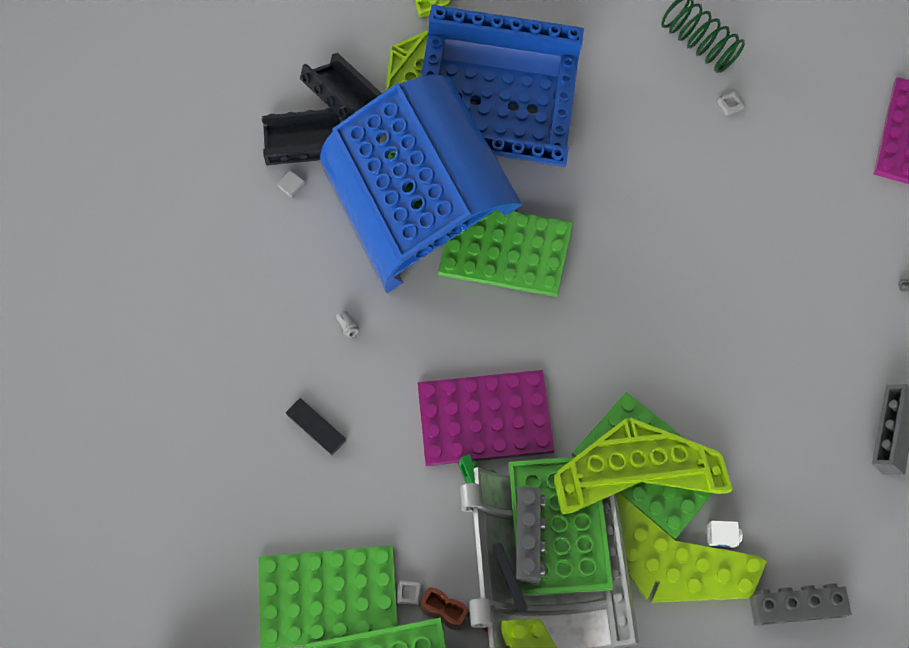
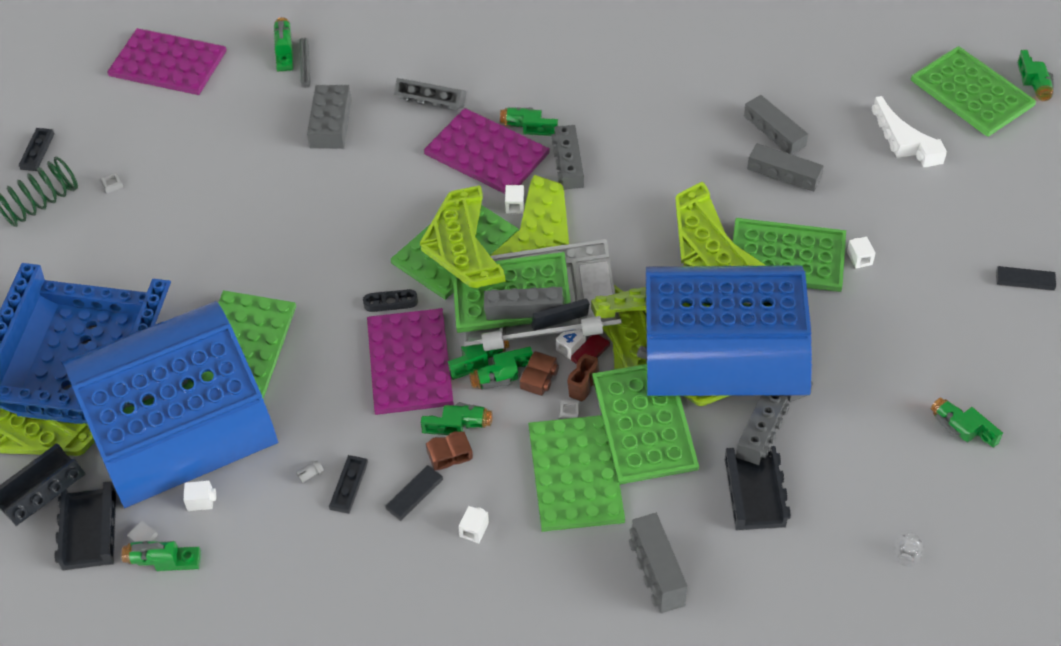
camera: 90 degrees left, 15 degrees down
(262, 201) = (163, 555): none -> green plate
(268, 485) = (473, 524): none -> white brick
(325, 225) = (199, 495): none -> white brick
(332, 362) = (348, 484): none -> black tile
(360, 459) = (449, 450): none -> copper brick
(402, 470) = (455, 418): none -> green plate
(453, 516) = (503, 369): none -> green plate
(457, 558) = (538, 373): none -> copper brick
(575, 409) = (384, 306): none -> black beam
(771, 28) = (36, 149): none -> black plate
(806, 503) = (486, 151): none -> magenta plate
(845, 313) = (329, 117): none -> dark grey brick
(864, 556) = (529, 119): none -> green plate

